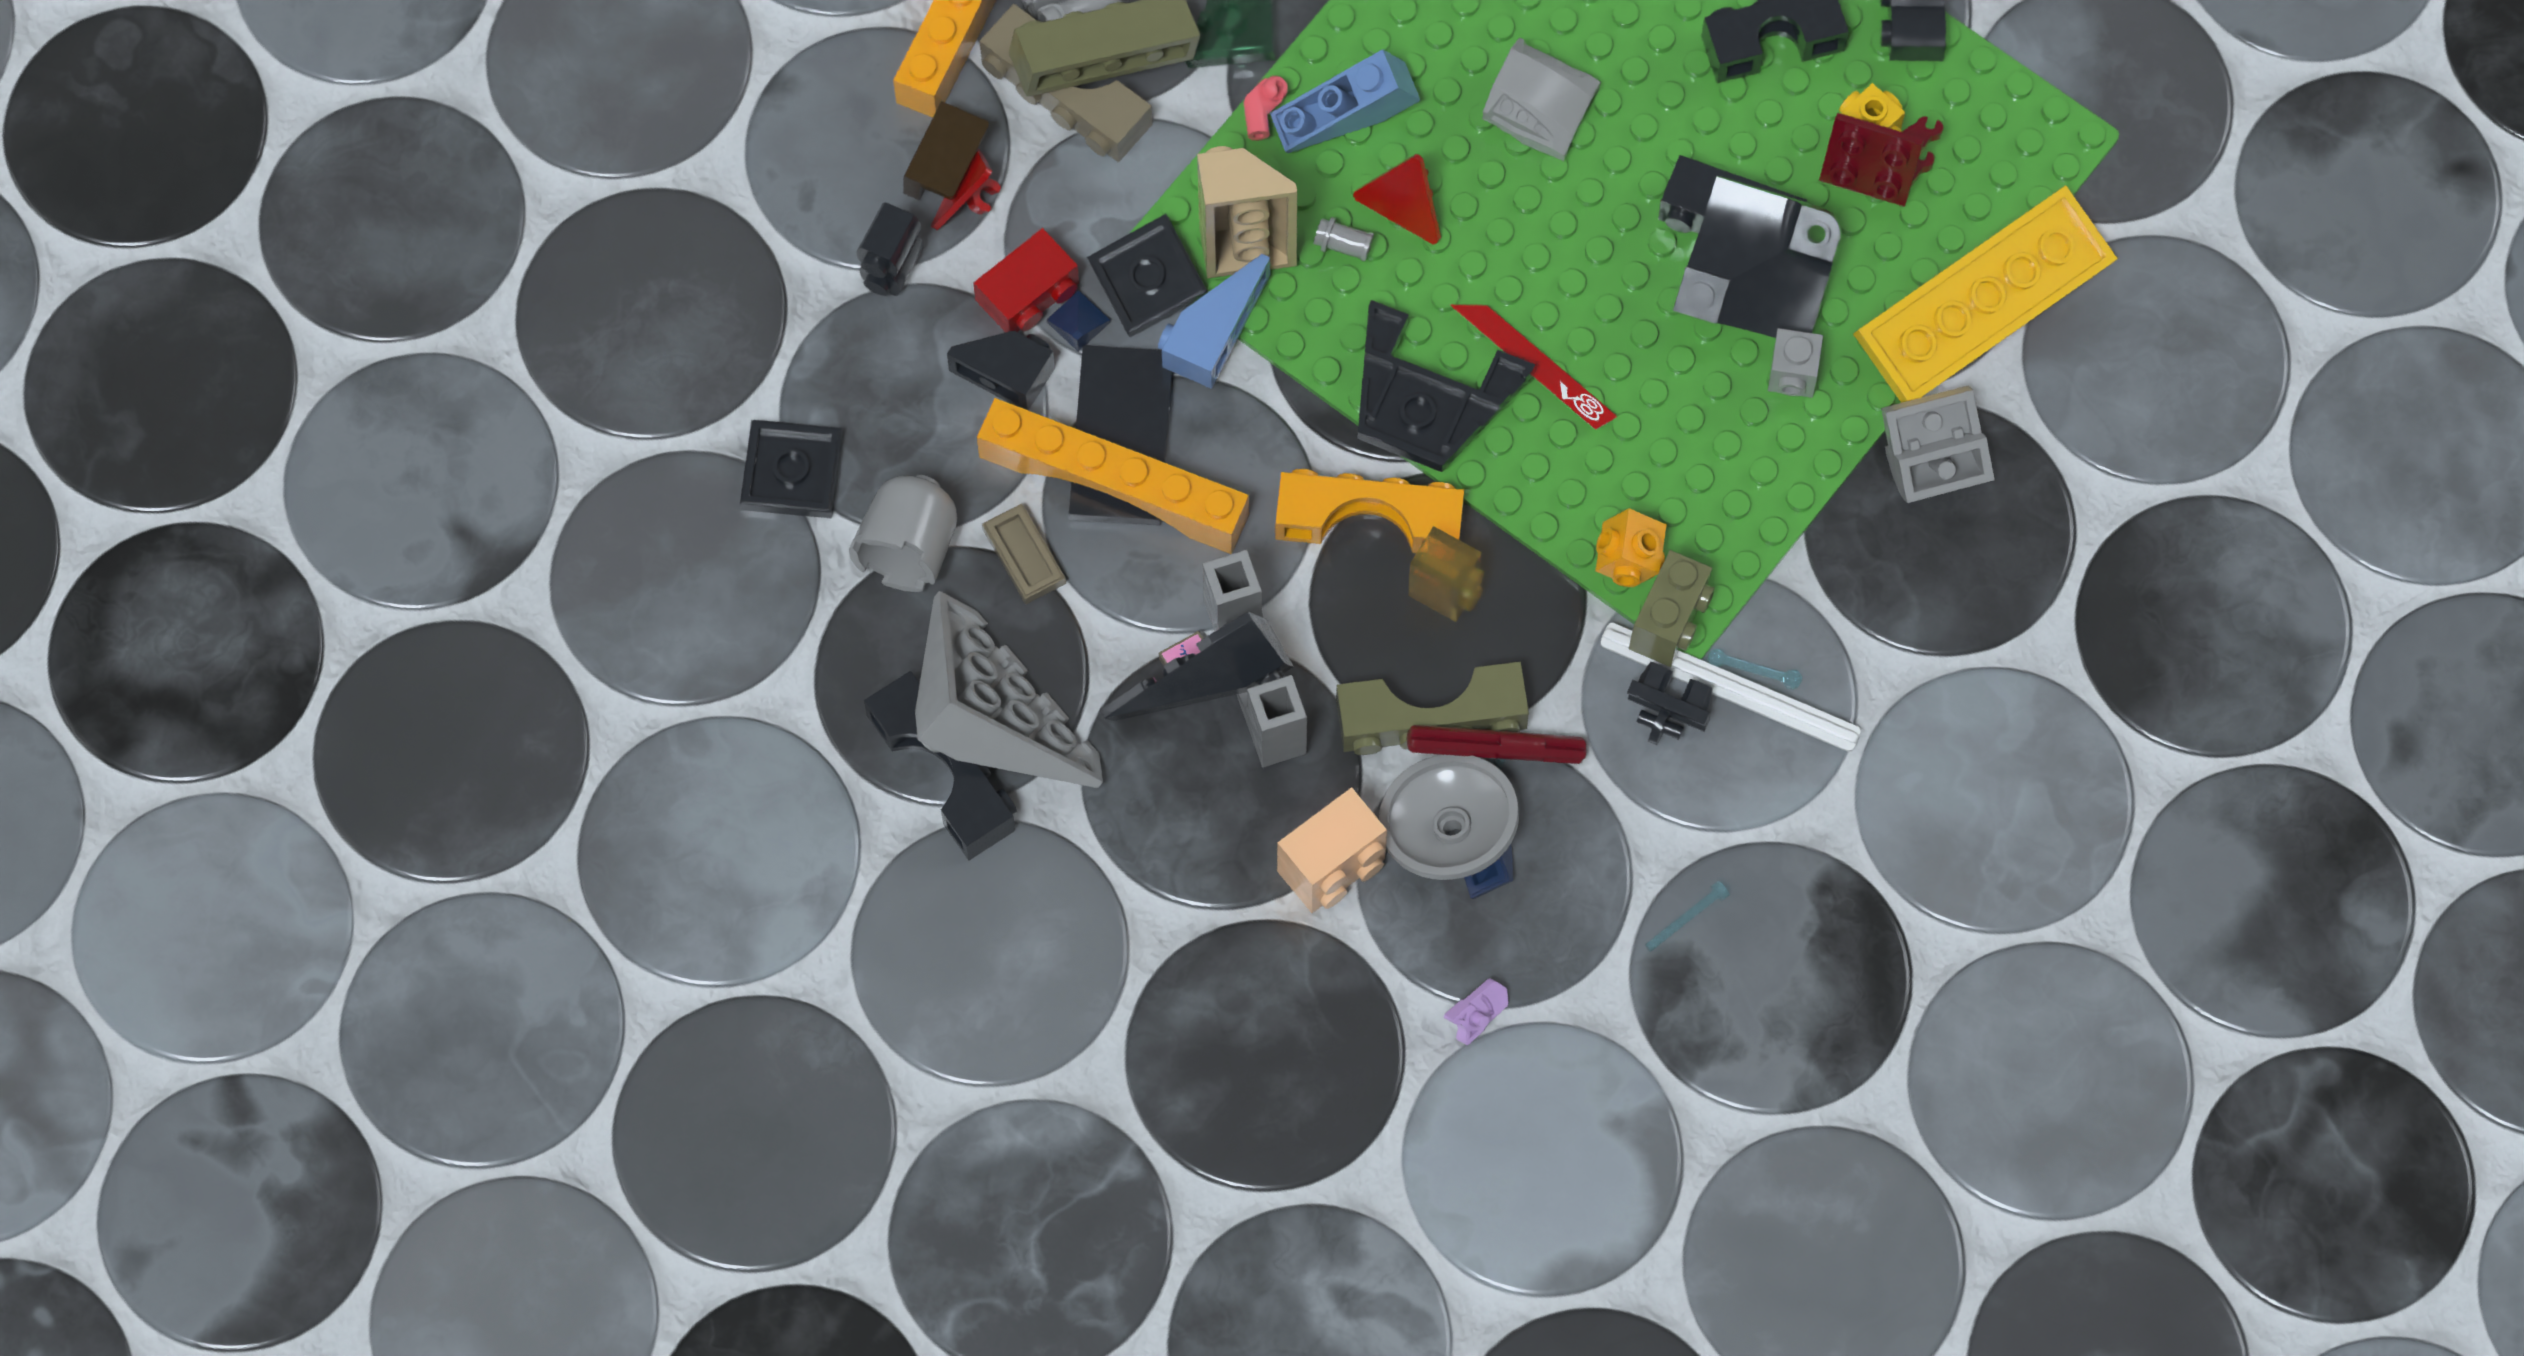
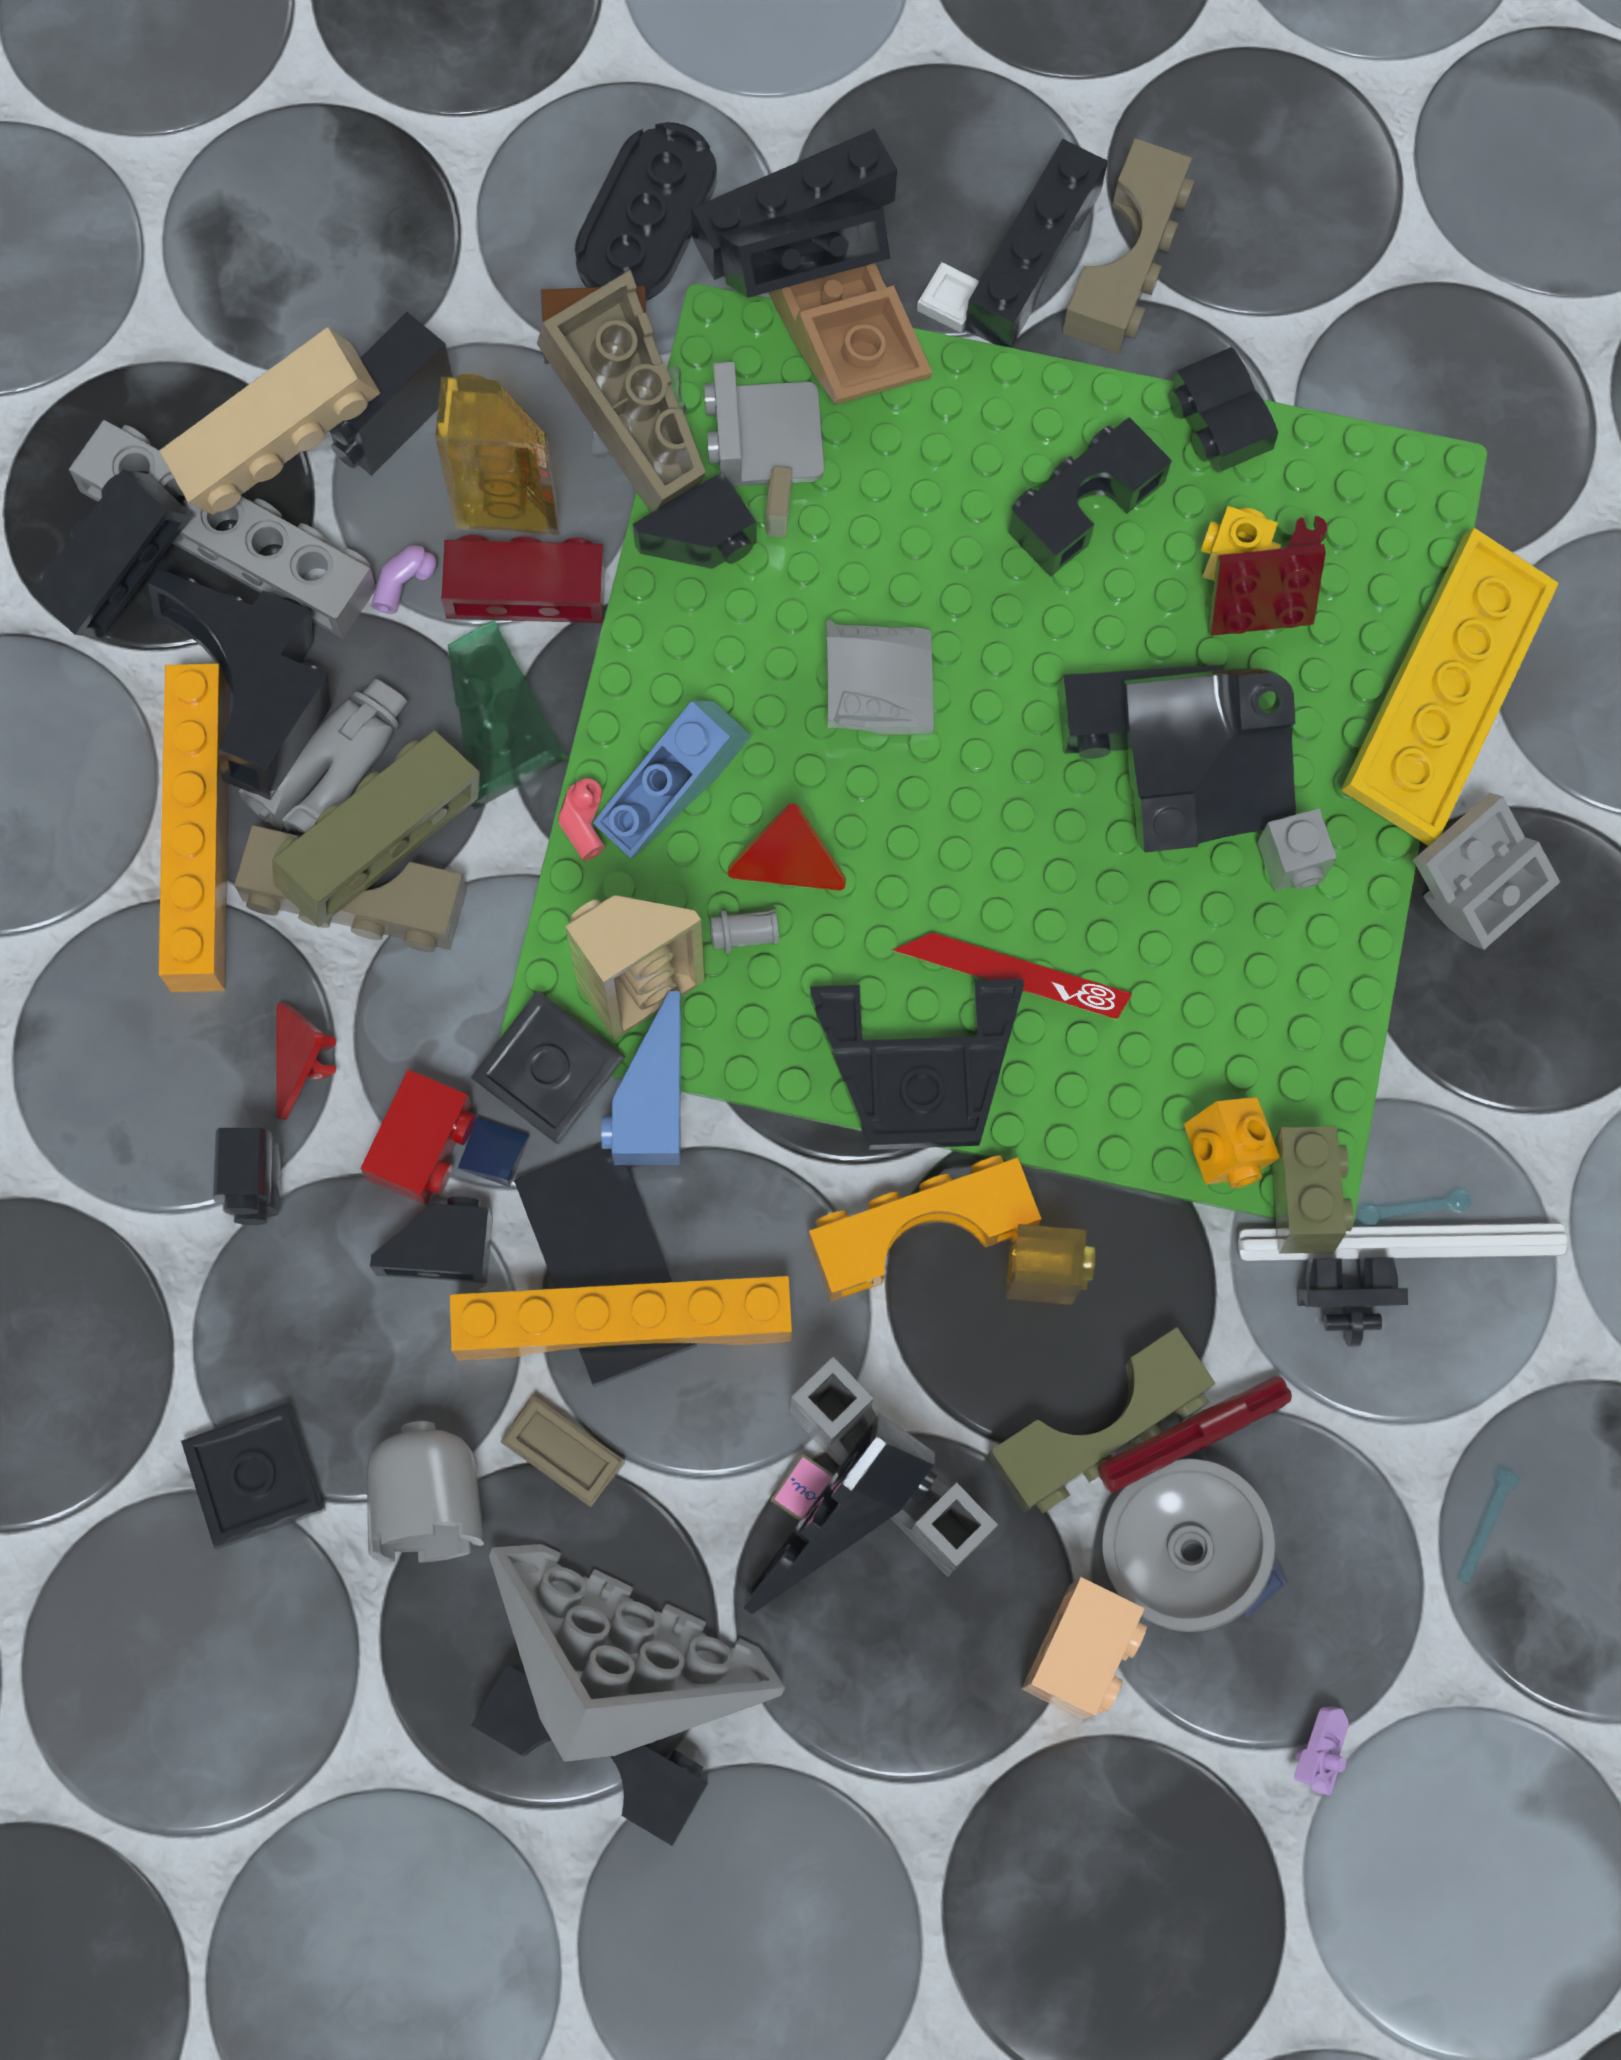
camera: 30 degrees left, 5 degrees up
(944, 153) = (256, 1030): dark brown panel -> none

